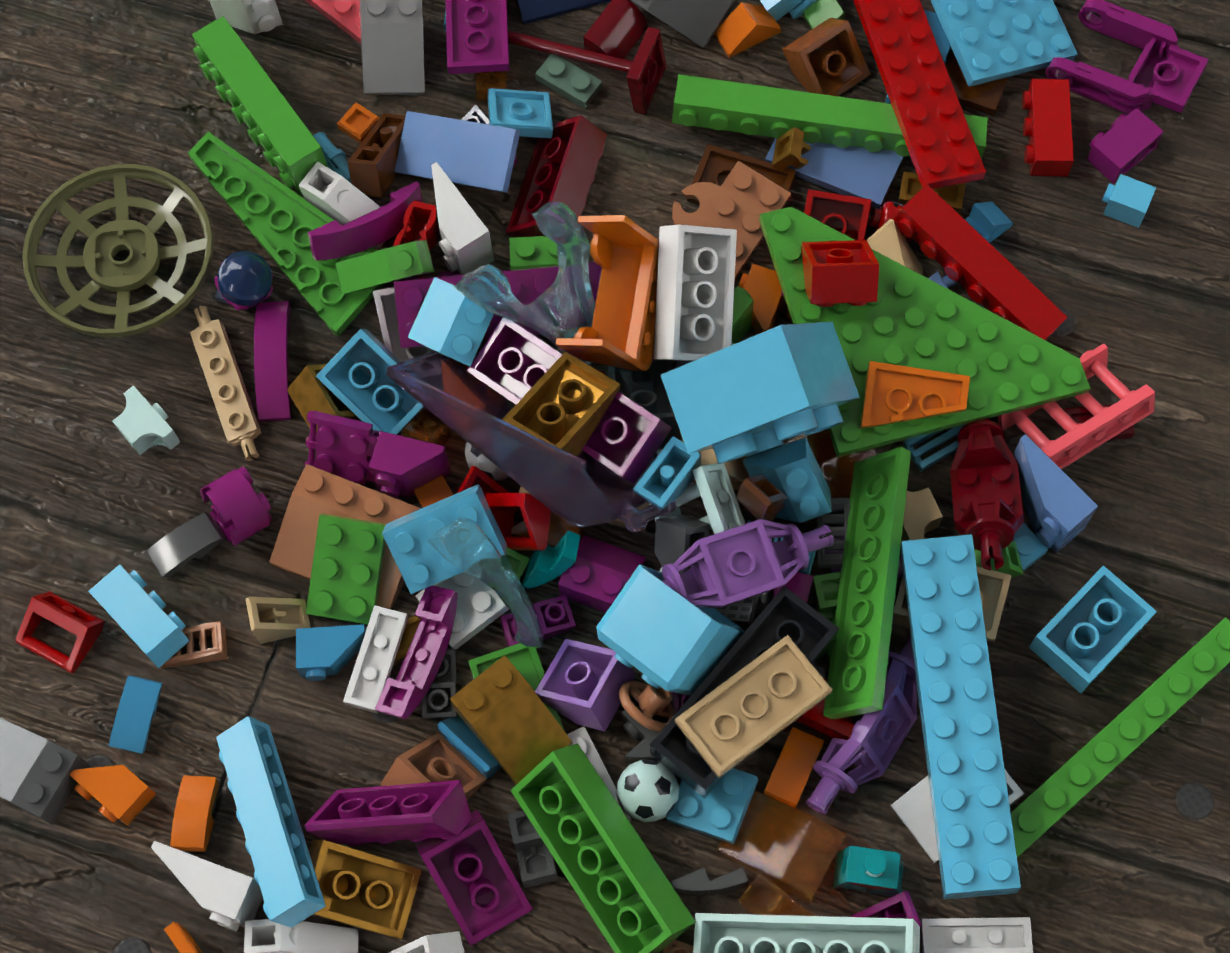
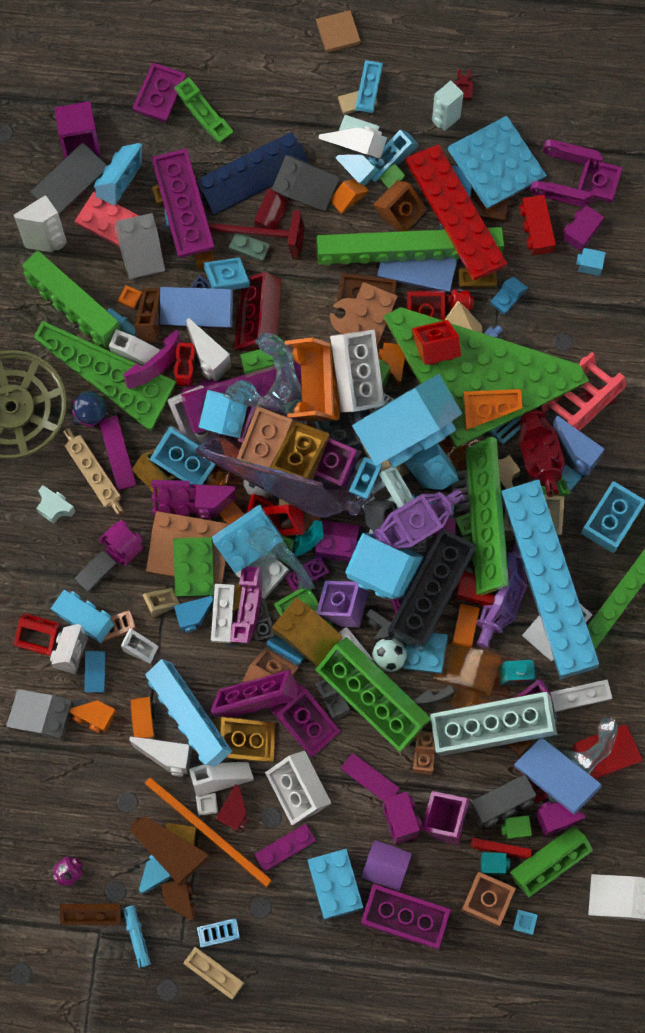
camera: 15 degrees left, 5 degrees up
(103, 668) = (70, 649): none -> white slope
(220, 686) = (138, 646): none -> white slope
(384, 266) = (172, 386): bright green slope -> none
(509, 368) = (264, 437): none -> nougat plate
(651, 702) = (381, 605): nougat piece -> none
(753, 706) = (439, 597): tan tile -> none
(761, 497) = (419, 481): reddish brown slope -> none
(789, 150) = (390, 269): pearl gold tile -> none
(976, 264) = (512, 319): red brick -> none

